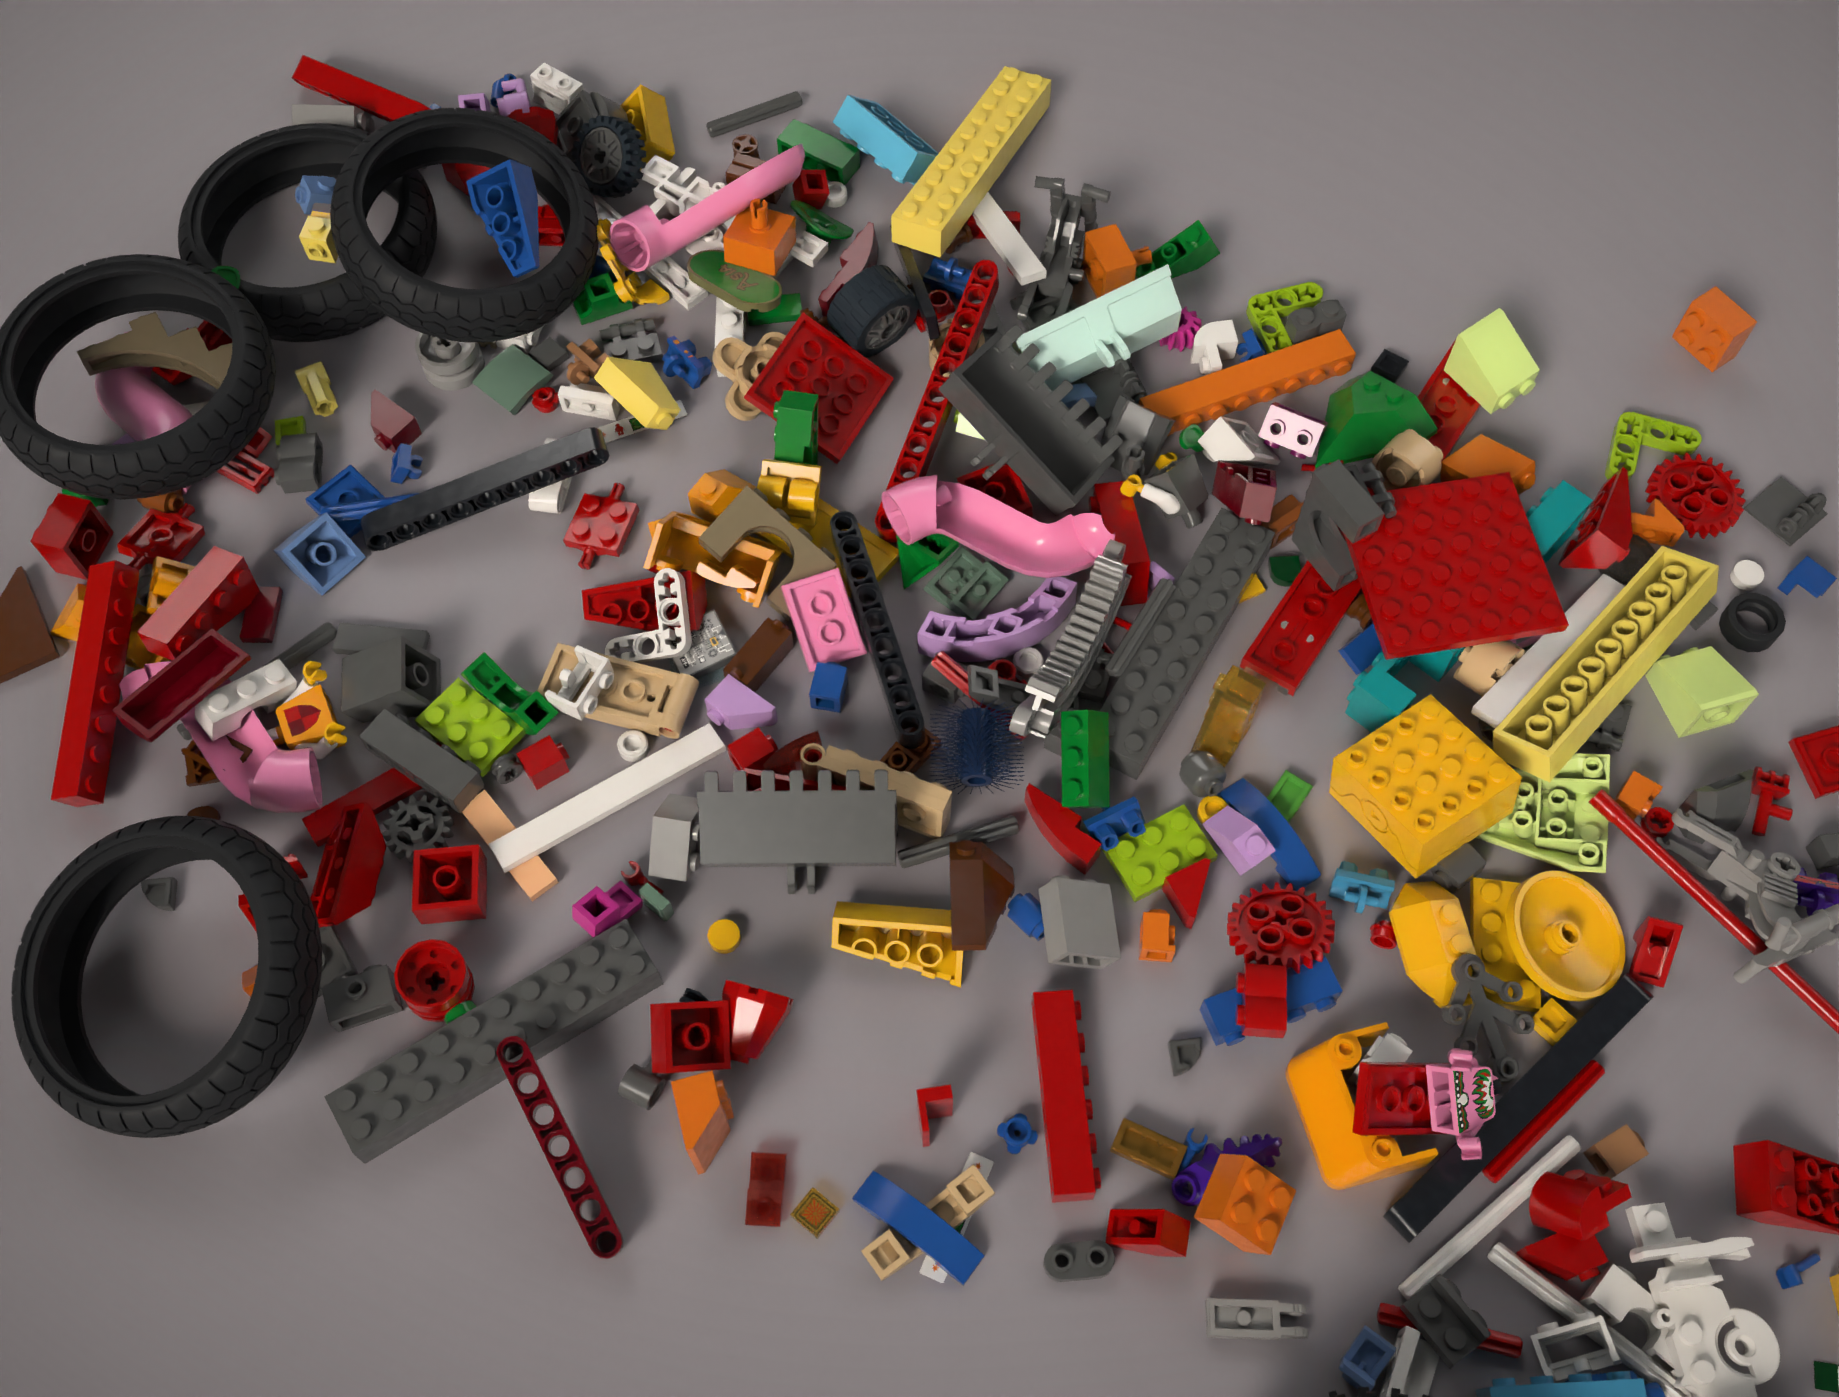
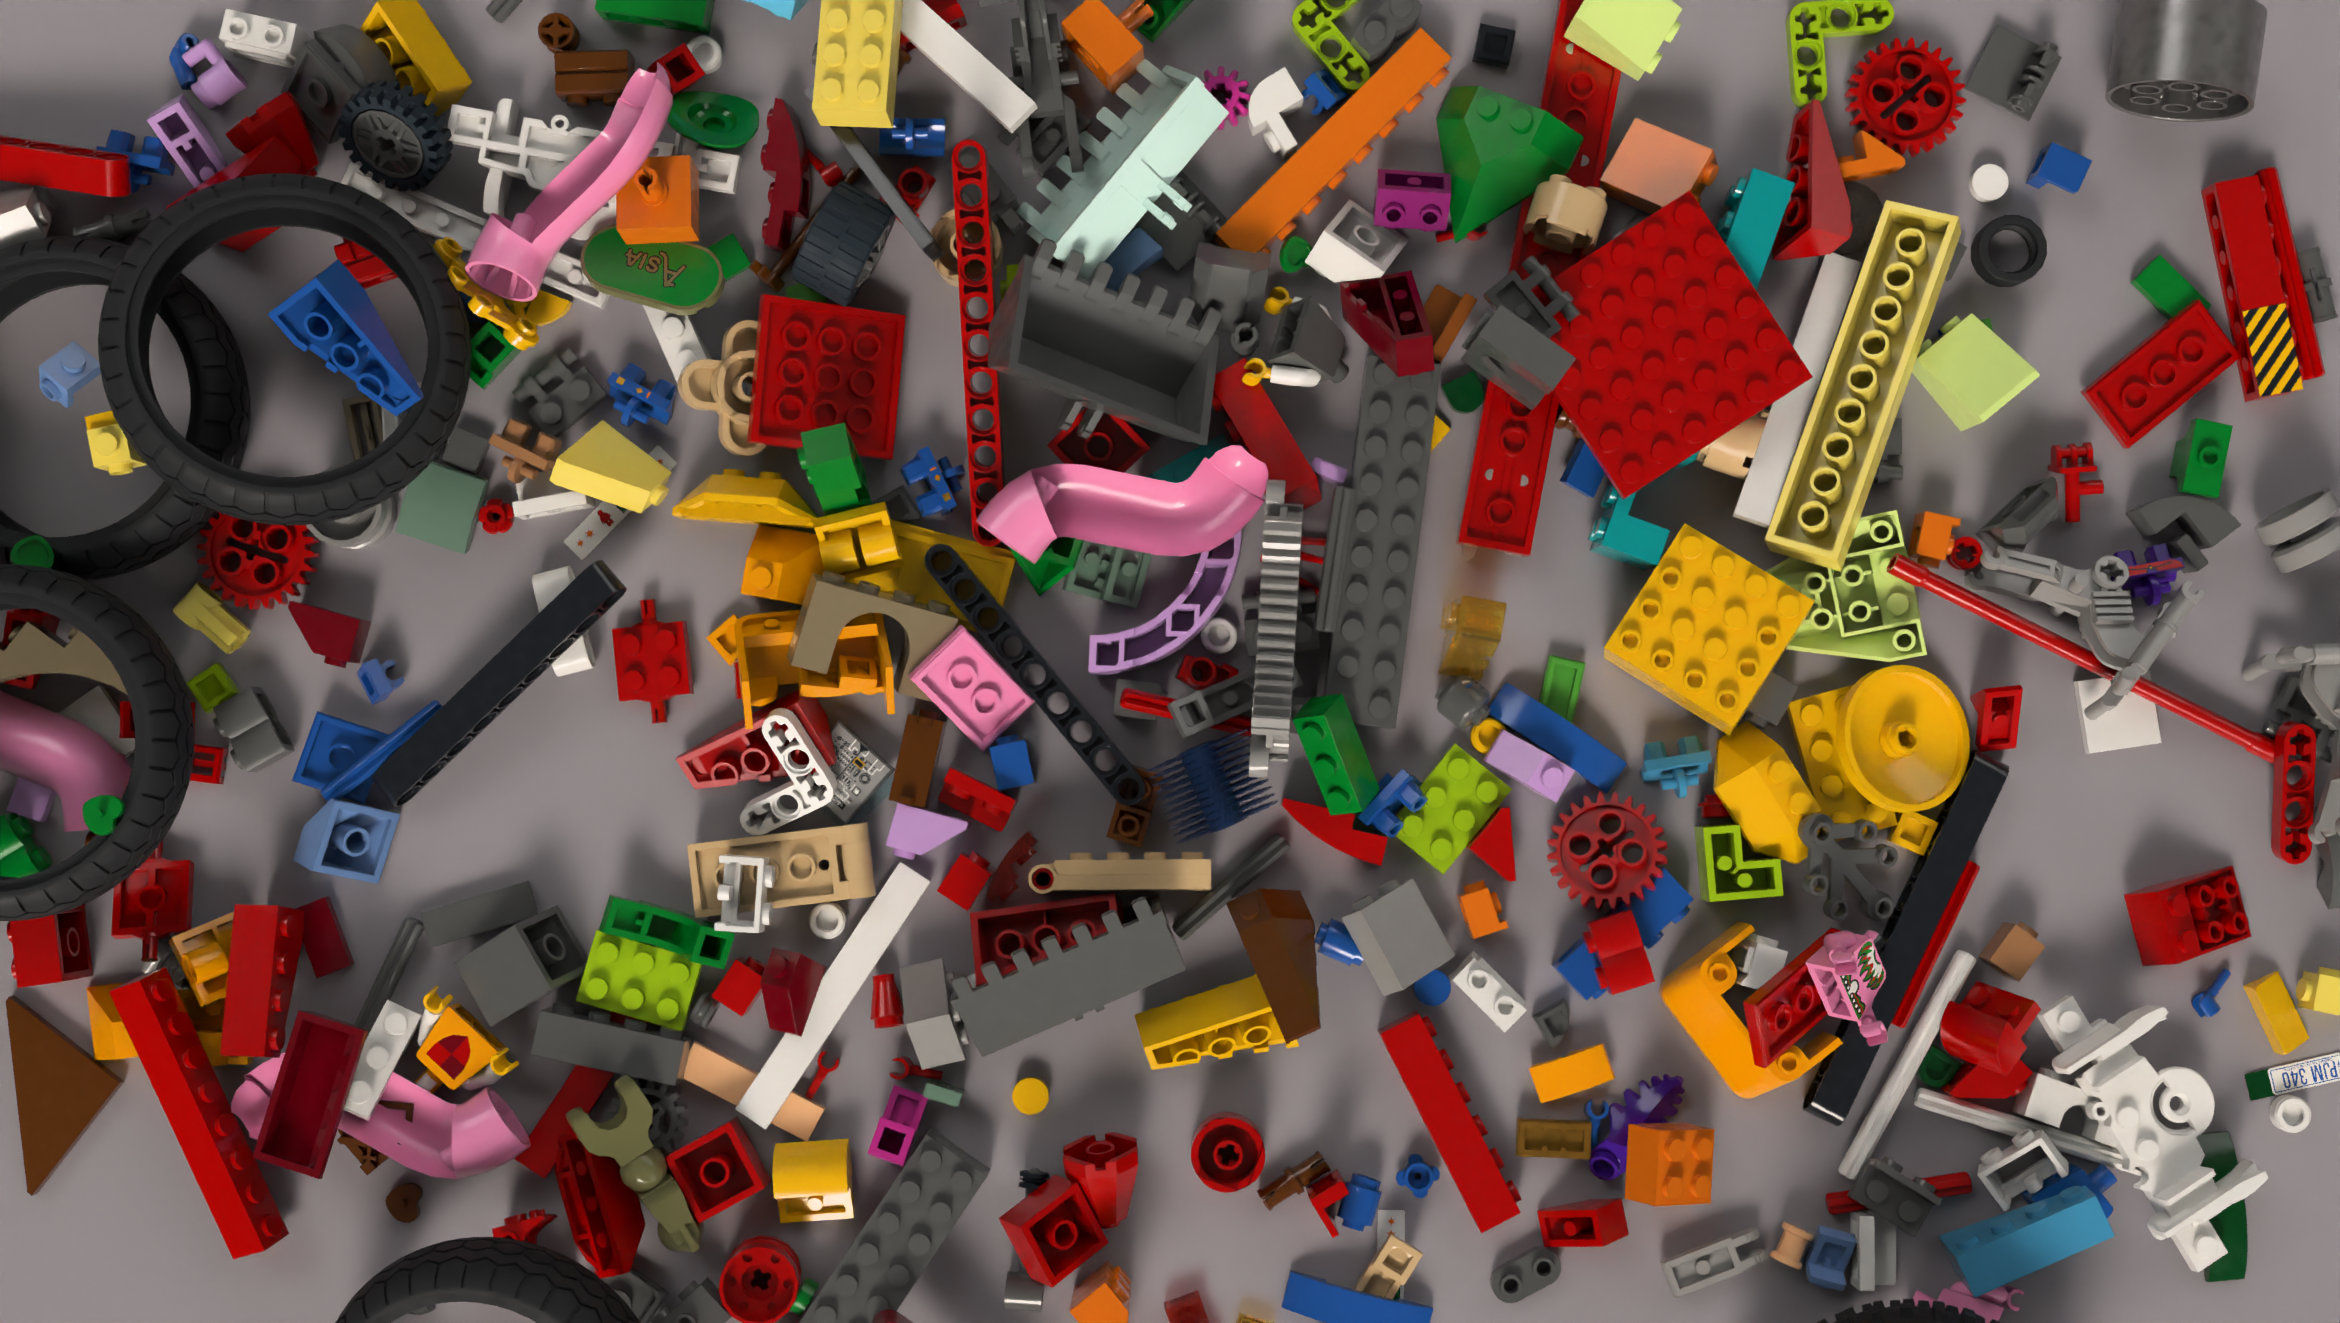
camera: 20 degrees left, 25 degrees up
(163, 422) = (101, 813): none -> green piece
(384, 346) = (248, 581): none -> red gear
(392, 849) = (641, 1164): none -> olive piece
(518, 927) = (813, 1180): none -> yellow brick
(577, 852) = (820, 1075): none -> red hand
(578, 772) = (790, 990): none -> dark red slope
(641, 823) = (886, 1002): none -> red cone
(718, 446) = (747, 501): none -> yellow wedge
(791, 698) = (977, 799): none -> red bracket
(831, 493) = (899, 505): none -> dark grey tile
(864, 1020) = (1236, 1171): none -> red brick
(866, 483) = (925, 468): none -> blue hips
(904, 1092) = (1293, 1180): none -> reddish brown pin
(958, 1131) = (1360, 1206): none -> blue brick
(1091, 983) = (1432, 988): none -> blue tile
(1140, 1000) = (1488, 991): none -> white window
(1185, 1099) = (1572, 1072): none -> light orange slope
(1333, 1334) = (1792, 1245): none -> light nougat bush
(1380, 987) = (1724, 871): none -> lime brick
(1517, 1231) = (1937, 1068): none -> dark green tile
(1761, 1001) = (2125, 726): none -> white tile

